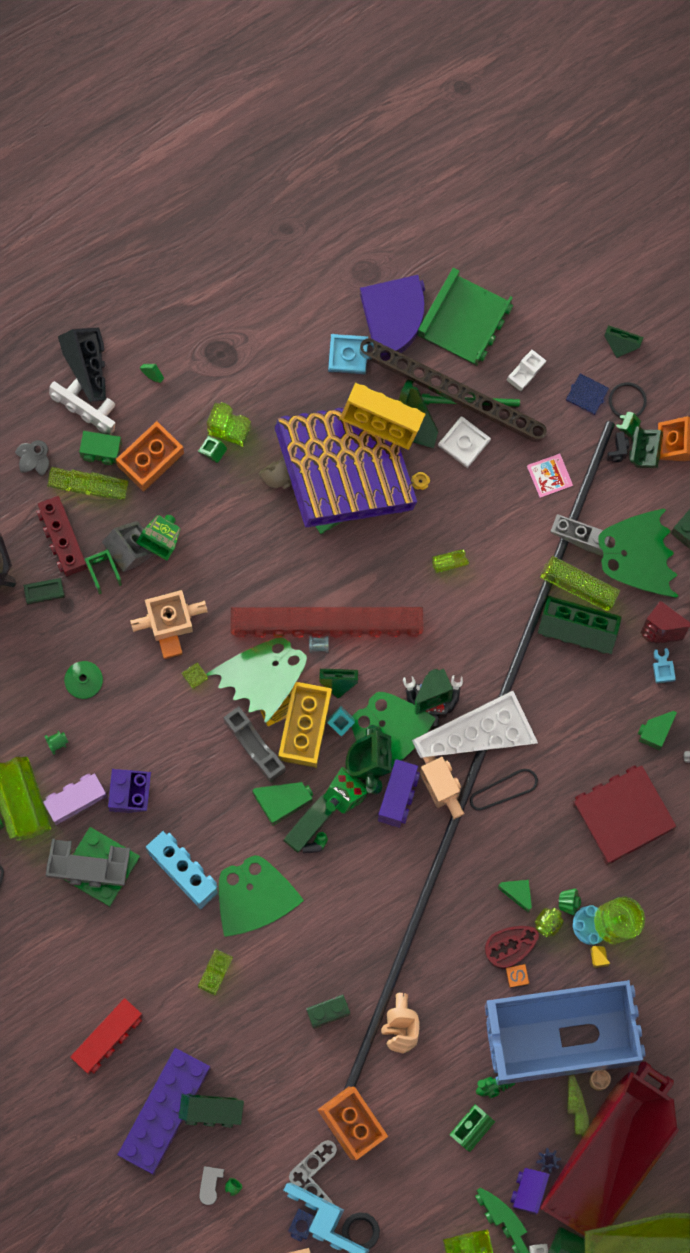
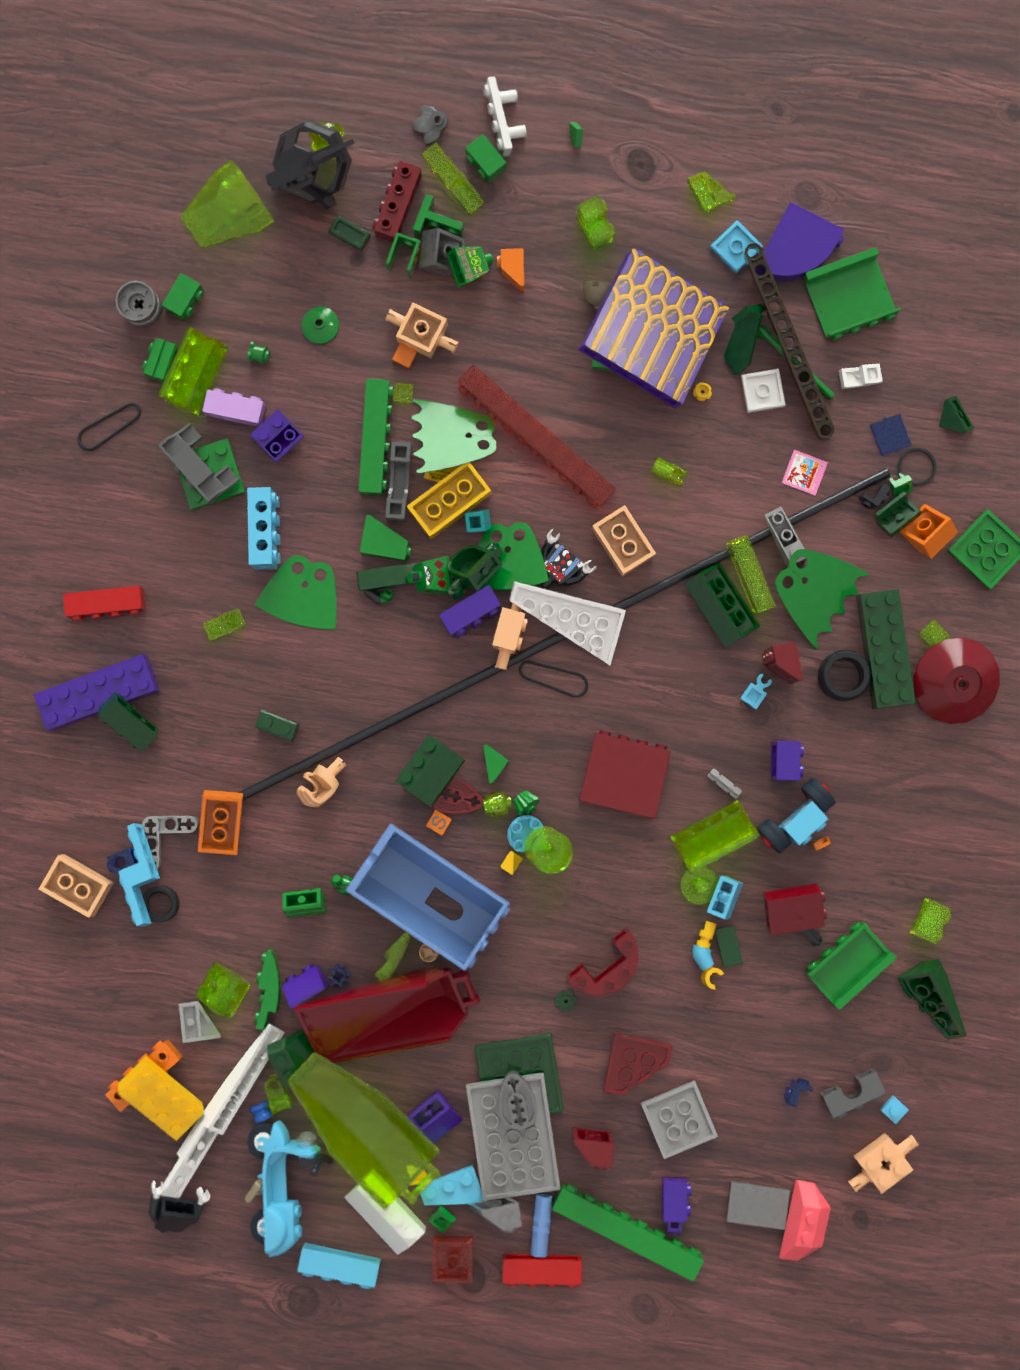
camera: 50 degrees right, 10 degrees up
(84, 355) = (536, 76): black wedge -> none
(104, 525) = (435, 220): none -> green bracket
(150, 456) = (515, 196): orange brick -> none
(194, 510) = (512, 266): none -> orange slope
(204, 727) = (375, 437): none -> green brick
(208, 1185) = (79, 776): light grey leg -> none
(213, 449) = (569, 233): green slope -> none
(233, 1186) = (103, 790): green hinge -> none
(291, 331) = (708, 191): none -> clear neon green wing
(319, 644) = (514, 449): clear light blue bush -> none
(338, 680) = (504, 488): dark green slope -> none
(382, 416) = (714, 314): yellow brick -> none
(434, 691) = (562, 558): dark green slope -> none
(463, 641) = (623, 541): none -> light nougat brick
(476, 940) = (430, 770): none -> dark green slope
(656, 730) = (707, 734): green slope -> none

